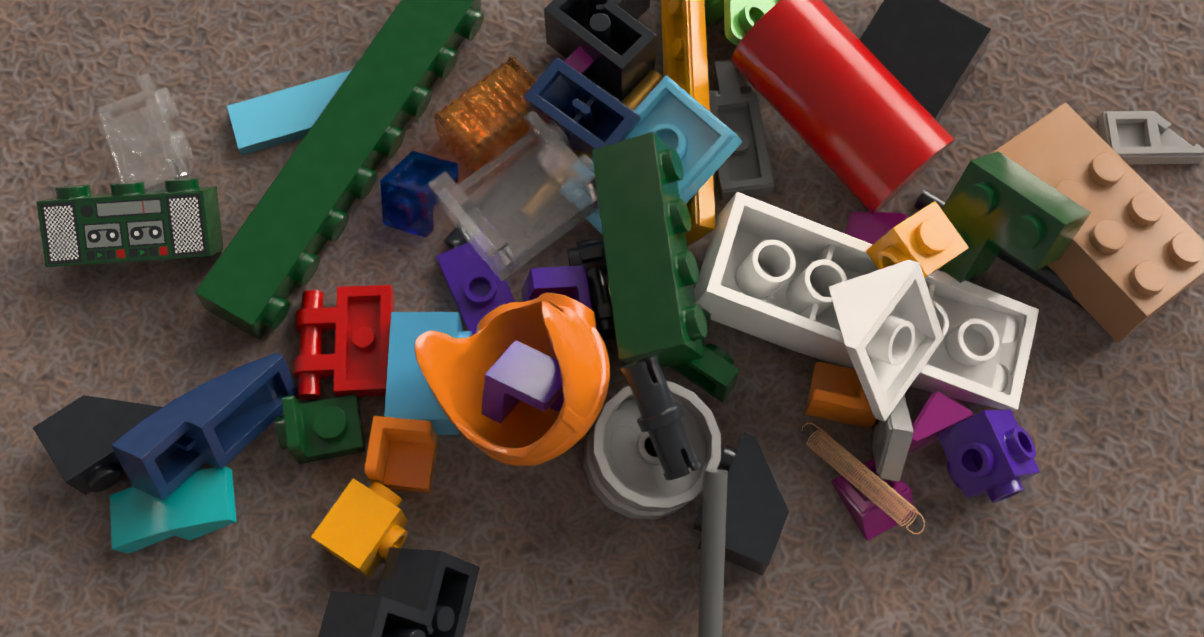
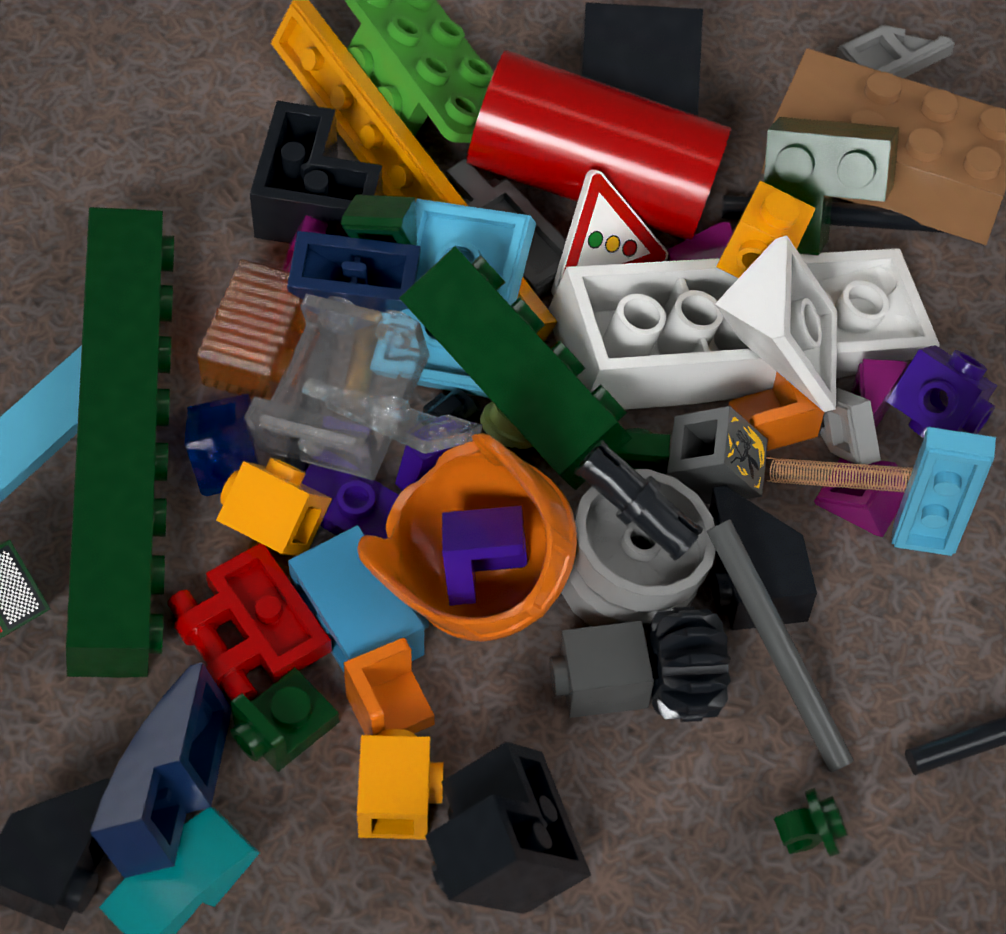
camera: 35 degrees left, 10 degrees down
(413, 264) = (273, 506): none -> light orange brick
(535, 258) = (395, 418): none -> clear piece
(570, 526) = (603, 669): none -> dark grey brick
(623, 79) = (381, 219): none -> dark green slope
(631, 563) = (688, 664): none -> black gear
(768, 406) = (718, 451): none -> dark grey brick
(801, 178) = (606, 230): none -> piece
(920, 544) = (942, 490): none -> medium azure tile

